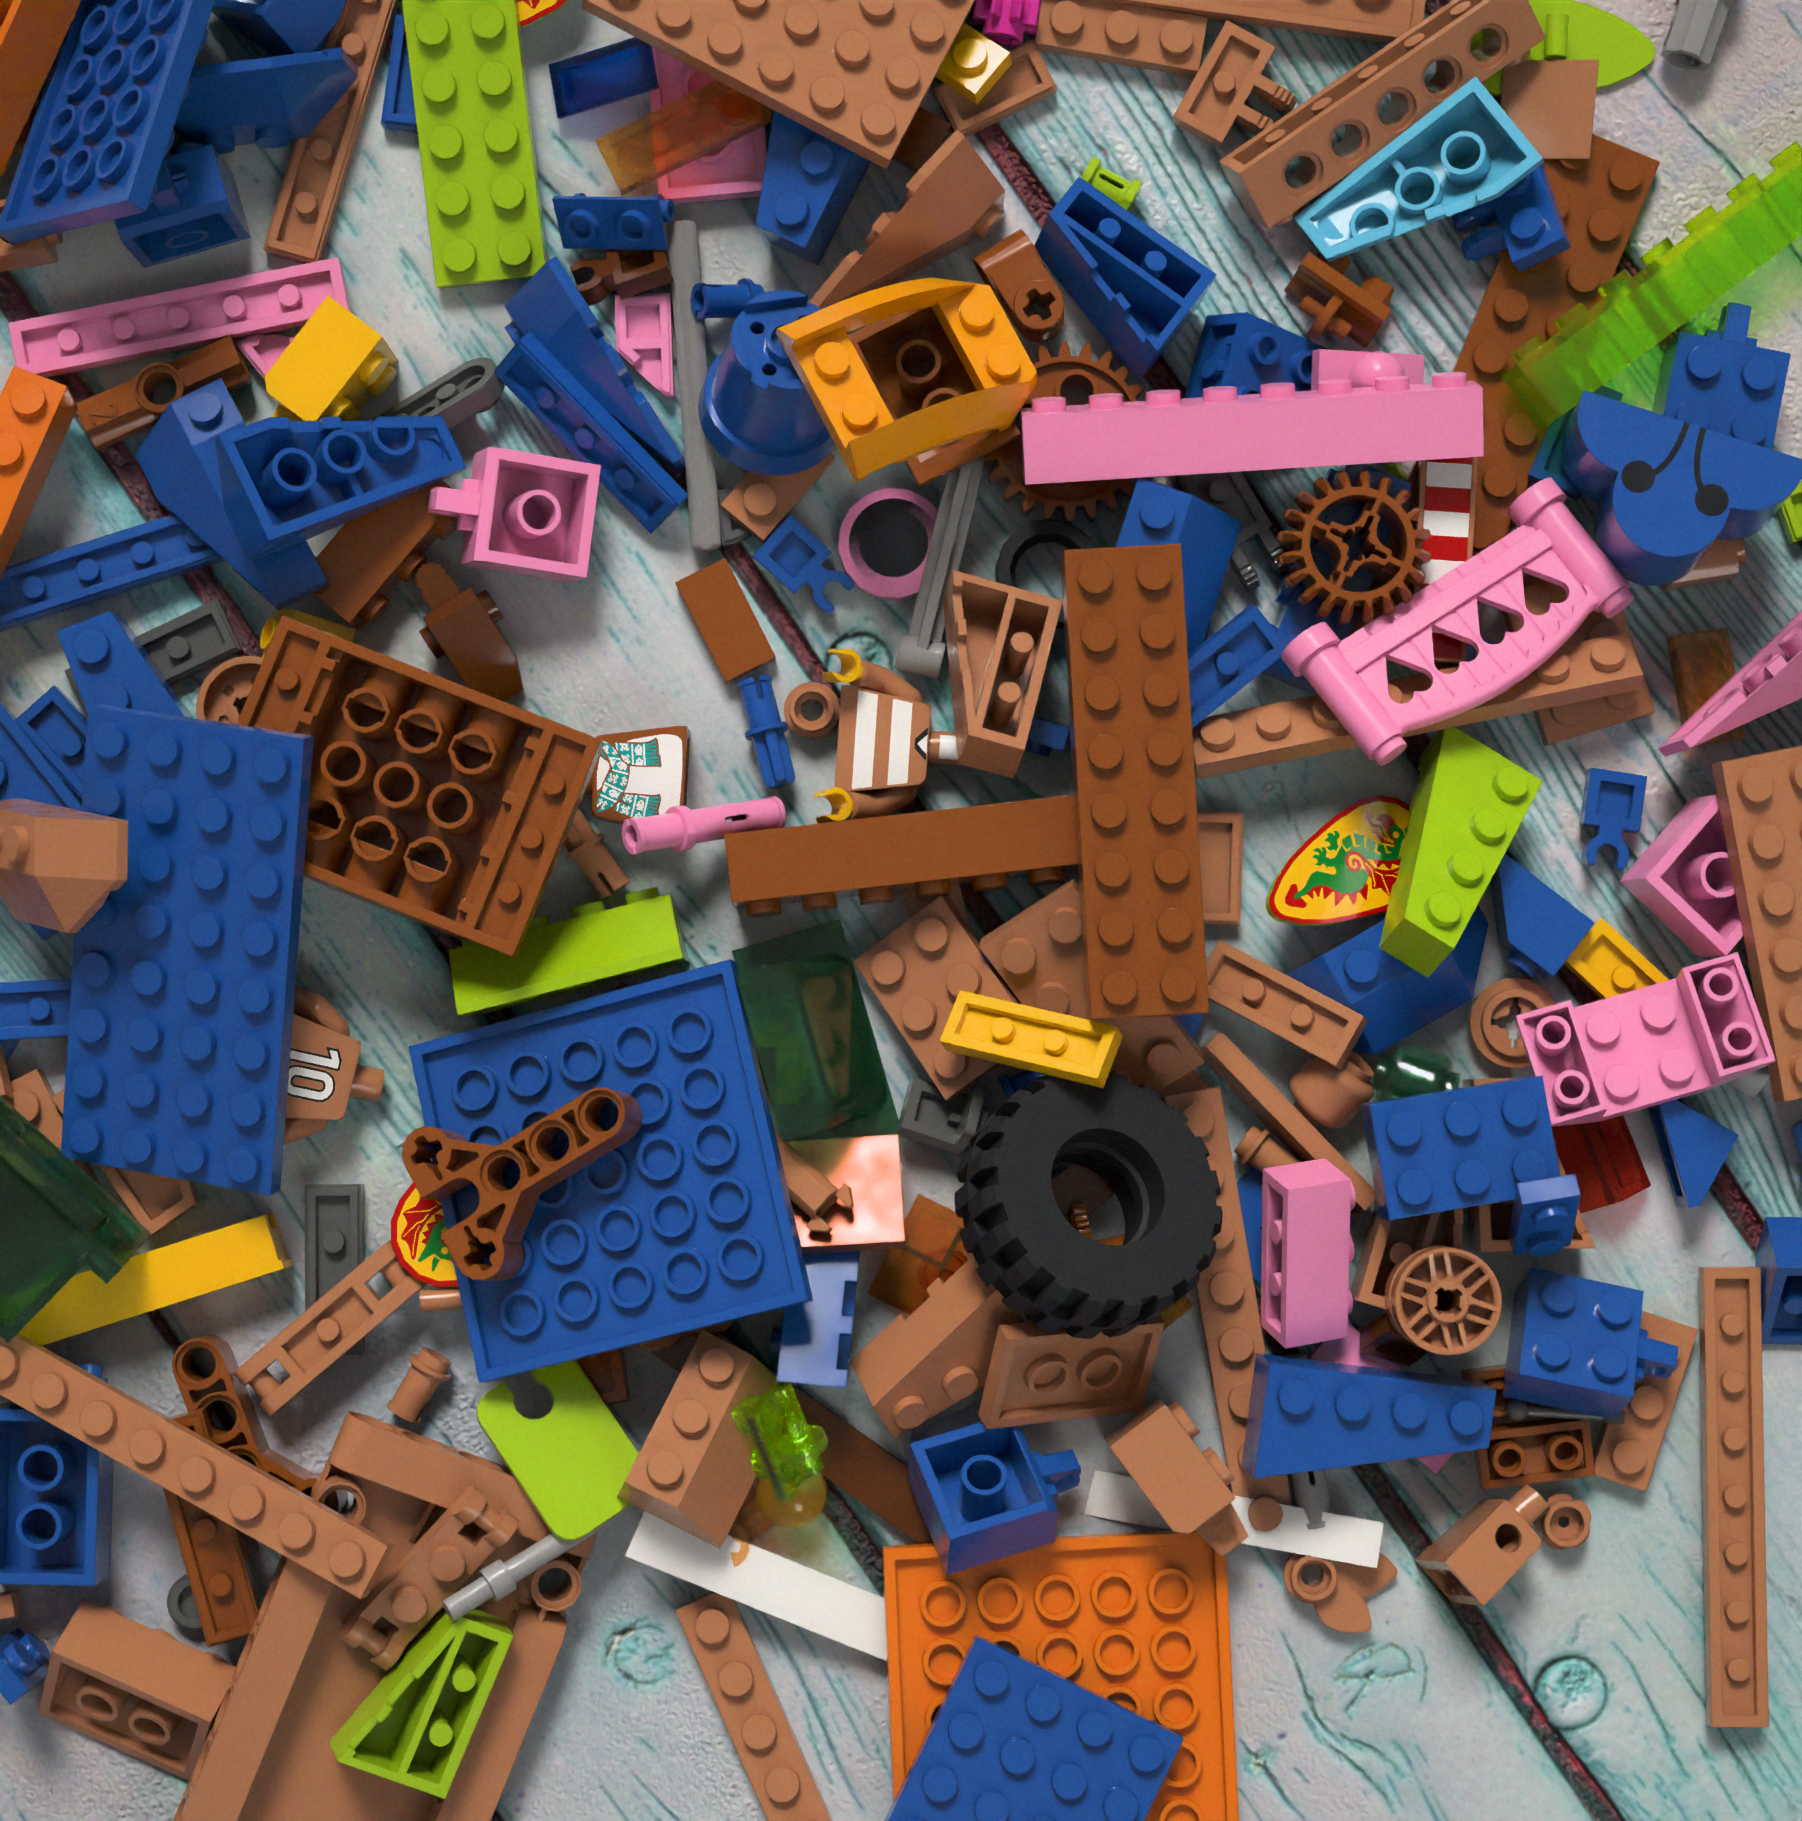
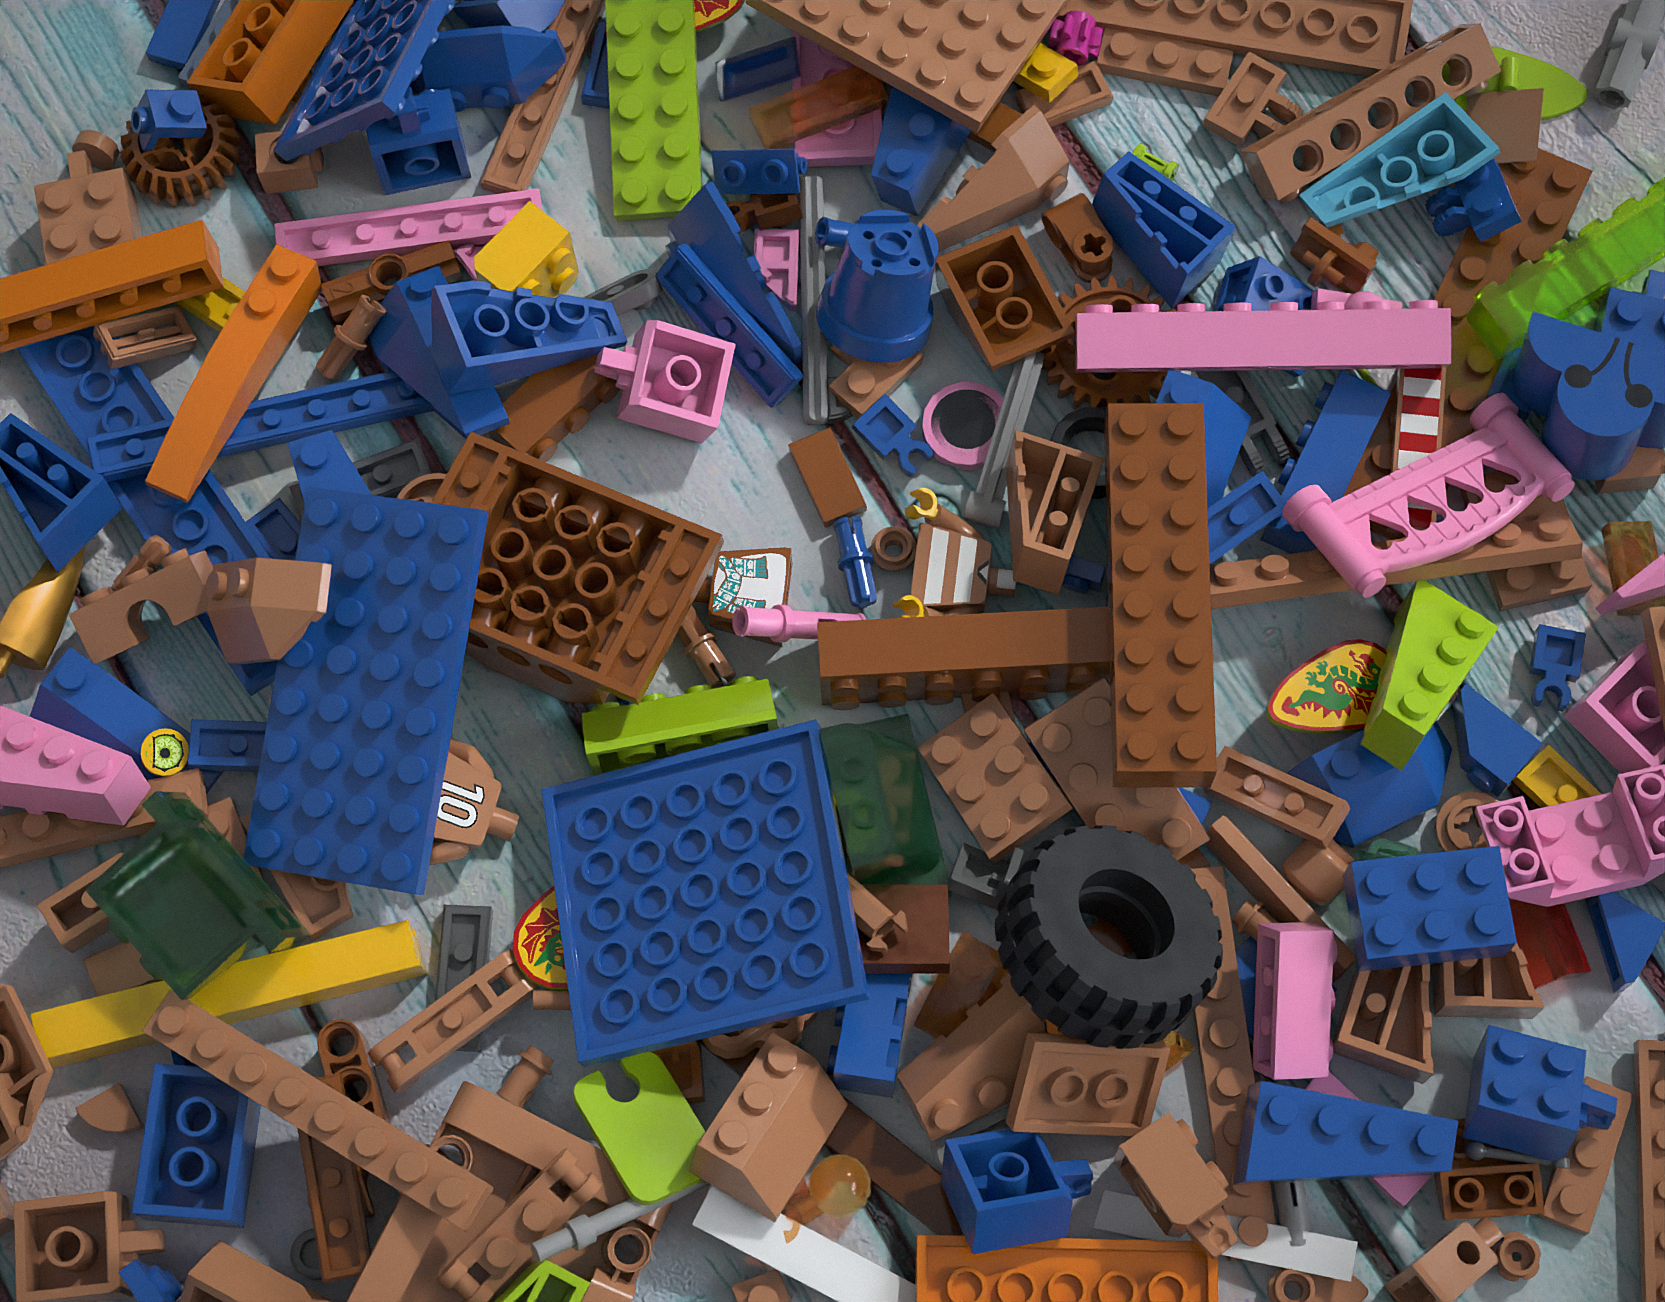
camera: 10 degrees right, 15 degrees down
(120, 473) = (350, 337): none -> nougat axle
(467, 632) = (614, 459): reddish brown hinge -> none
(505, 1212) = (593, 874): dark orange beam -> none
(784, 1443) = (836, 1127): clear neon green hips -> none
(851, 401) = (950, 307): light orange wedge -> none
(1031, 1038) = (1065, 796): yellow plate -> none
(1221, 866) = (1229, 690): nougat tile -> none
(1375, 503) = (1307, 413): dark orange gear -> none
(1384, 1341) = (1372, 1081): reddish brown tile -> none
(1472, 1298) = (1410, 1010): nougat wheel -> none
(1544, 1215) = (1500, 964): blue plate -> none

